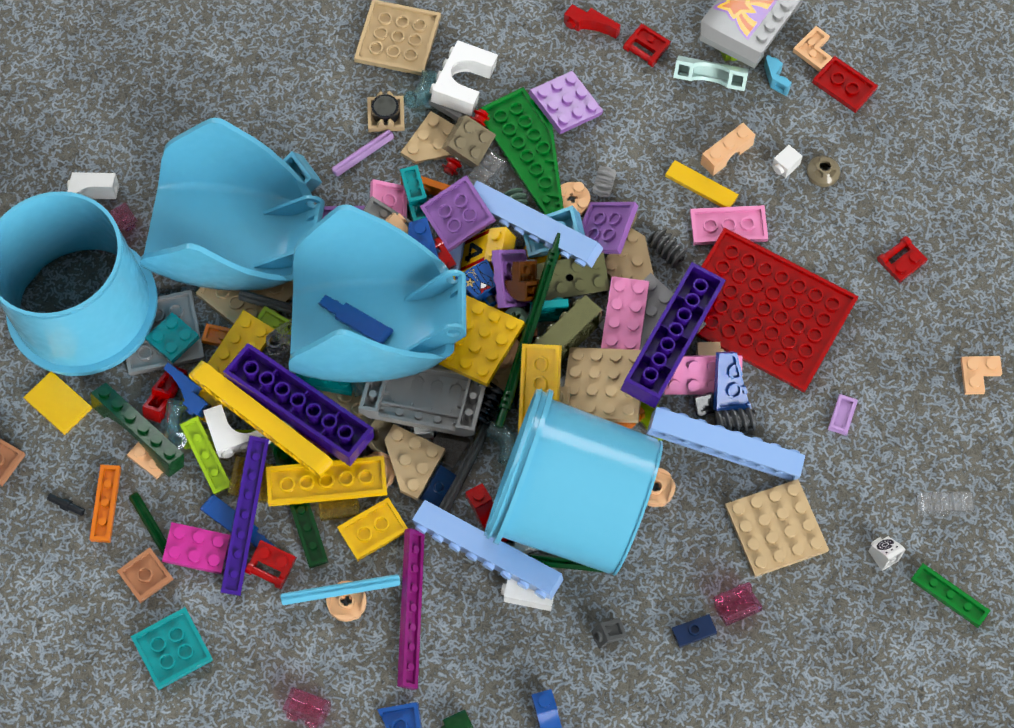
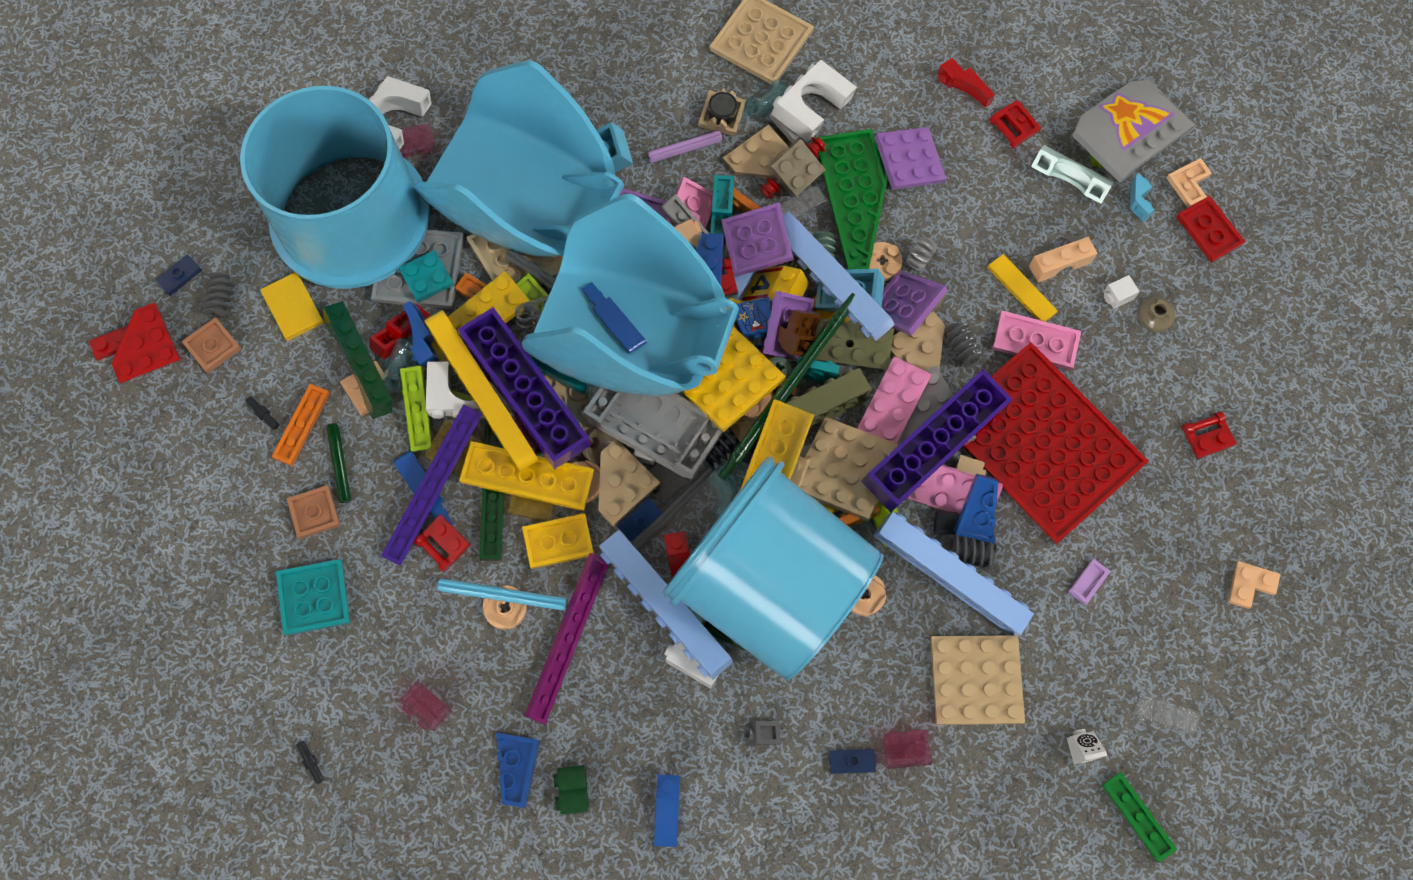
camera: 15 degrees right, 5 degrees up
(196, 548) = (373, 501): dark pink plate -> none

